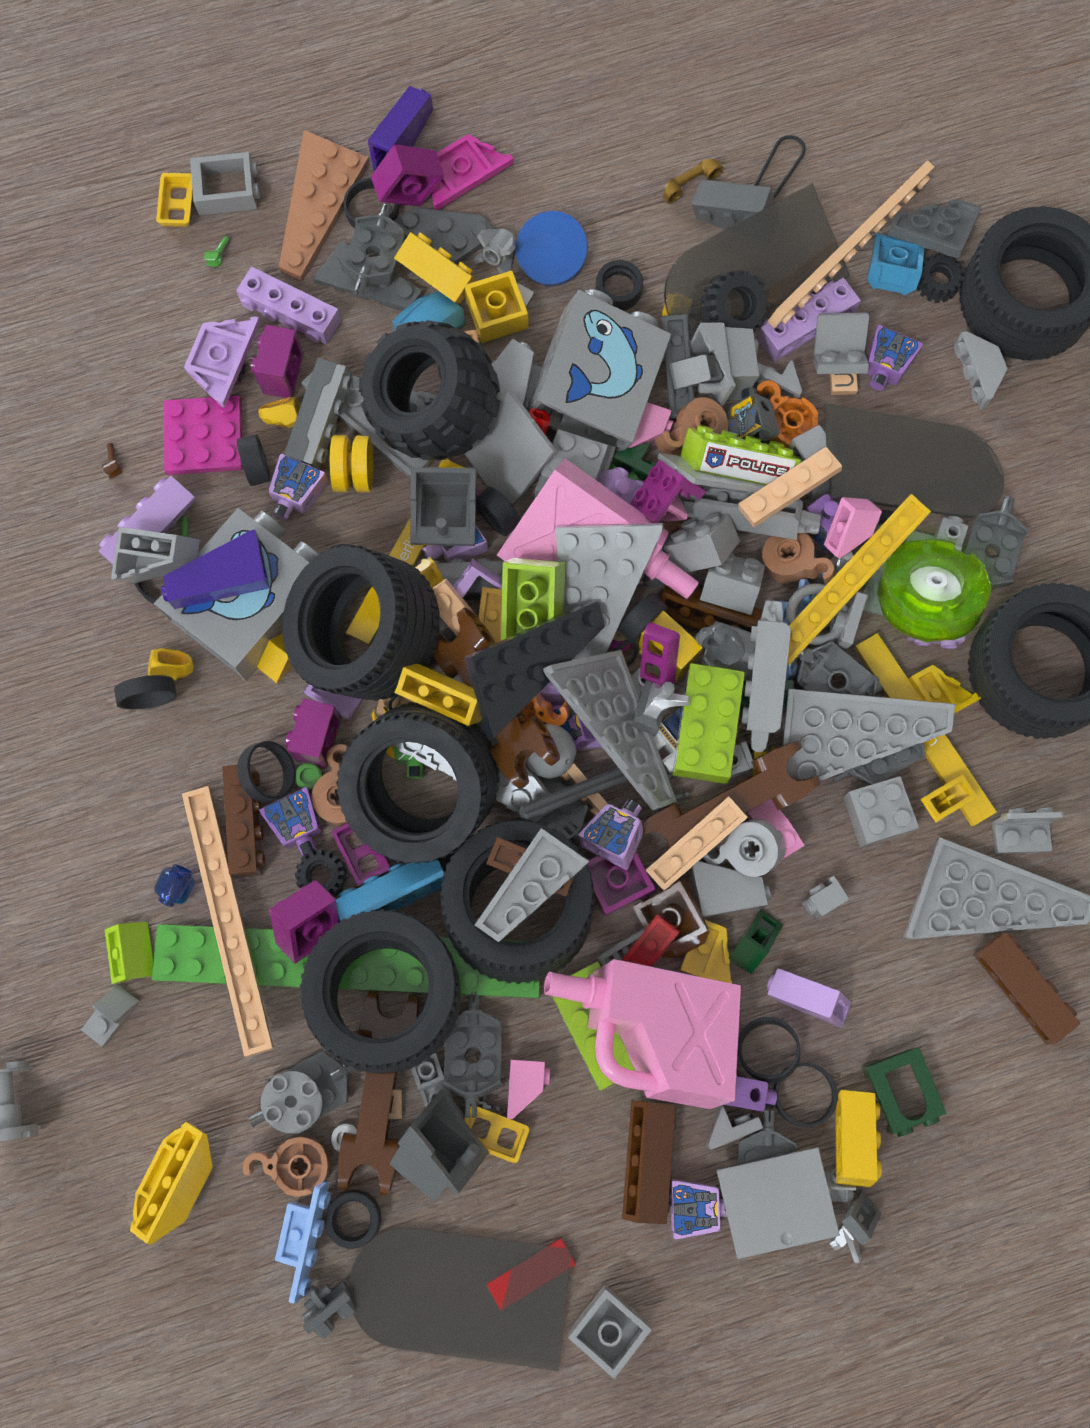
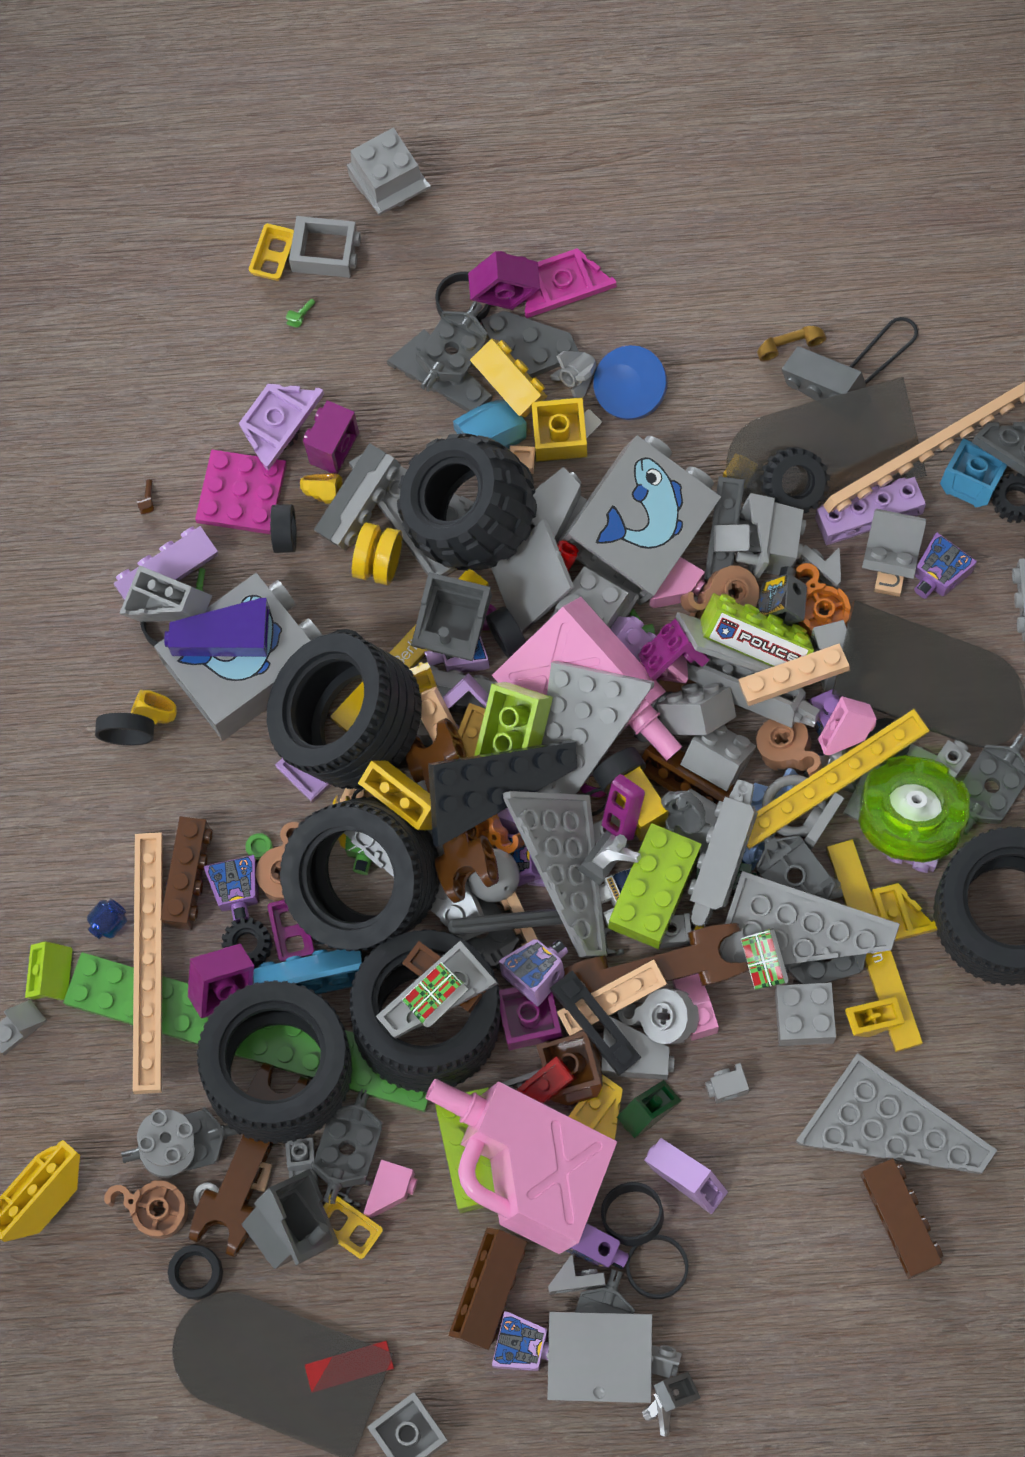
camera: 20 degrees right, 5 degrees down
(247, 782) = (241, 828): black tyre -> none
(266, 97) = (386, 172): none -> light grey piece
(275, 660) = (254, 727): yellow slope -> none
(289, 306) = (356, 383): lavender brick -> none
(295, 486) = (317, 563): torso -> none
(299, 1237) = (141, 1275): light blue bracket -> none
(313, 732) = (274, 804): magenta brick -> none
(317, 199) = (418, 267): nougat wing -> none
(323, 1305) = (139, 1352): dark grey hips -> none
(401, 124) = (512, 226): dark purple slope -> none
(531, 890) = (435, 994): none -> piece
(623, 268) = (693, 416): black tyre -> none
(633, 460) = (656, 611): dark green slope -> none
(719, 896) = (621, 1053): none -> black container
(832, 769) = (764, 959): none -> piece
(857, 1139) = (693, 1317): yellow brick -> none
(896, 1121) = (736, 1311): dark green panel -> none
(1024, 831) = (944, 1067): light grey bracket -> none

